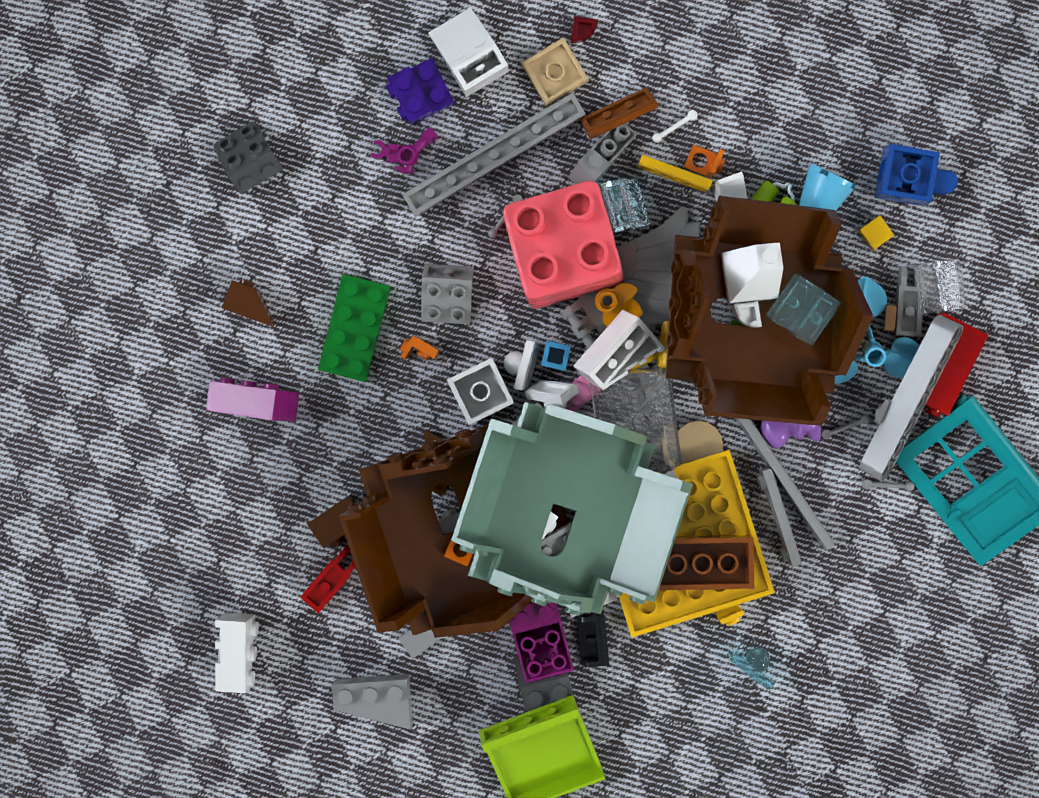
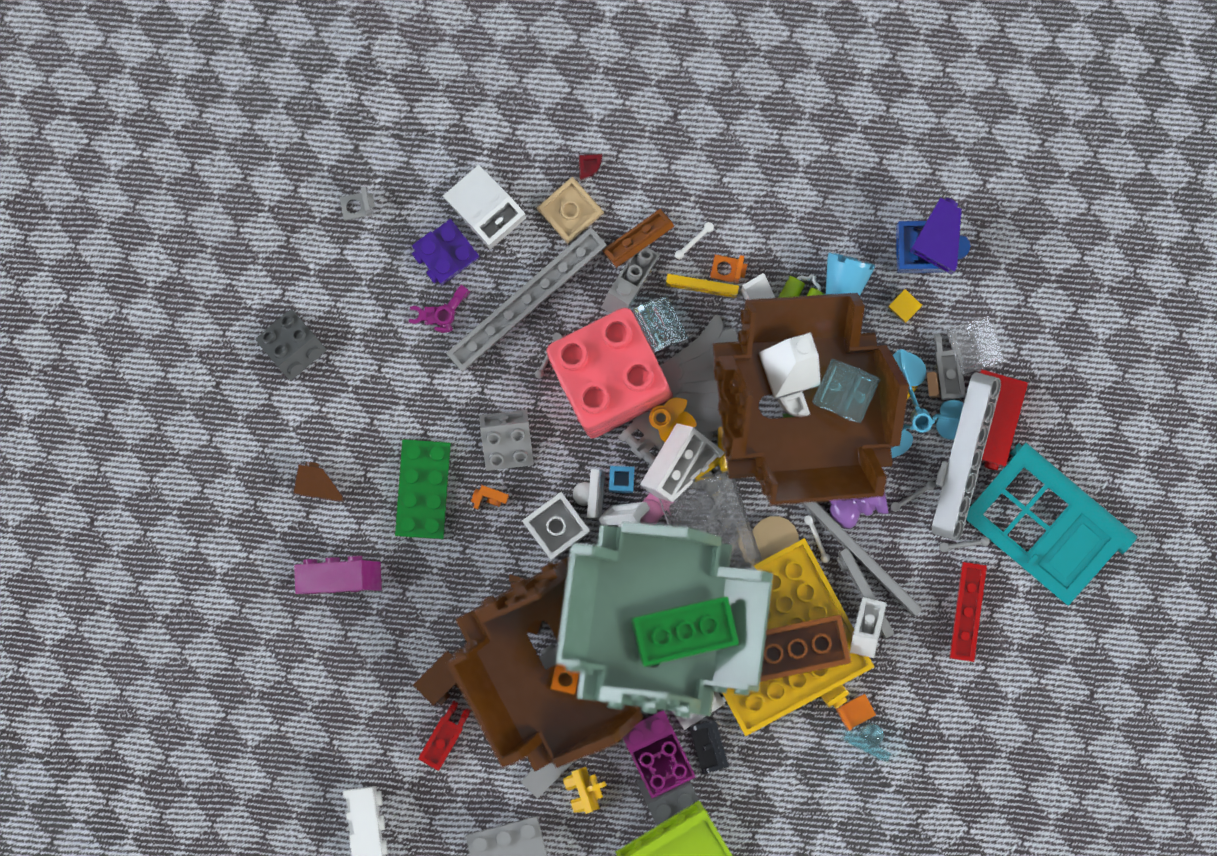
camera: 15 degrees left, 5 degrees down
(349, 22) = (366, 201): none -> light grey bracket
(463, 657) = (588, 790): none -> yellow hips
(591, 526) = (684, 631): none -> green plate
(737, 432) = (809, 520): none -> white hinge
(746, 633) = (855, 712): none -> orange bracket
(777, 554) = (868, 627): none -> white slope
(878, 554) = (968, 612): none -> red plate
(932, 167) = (940, 236): none -> dark purple slope

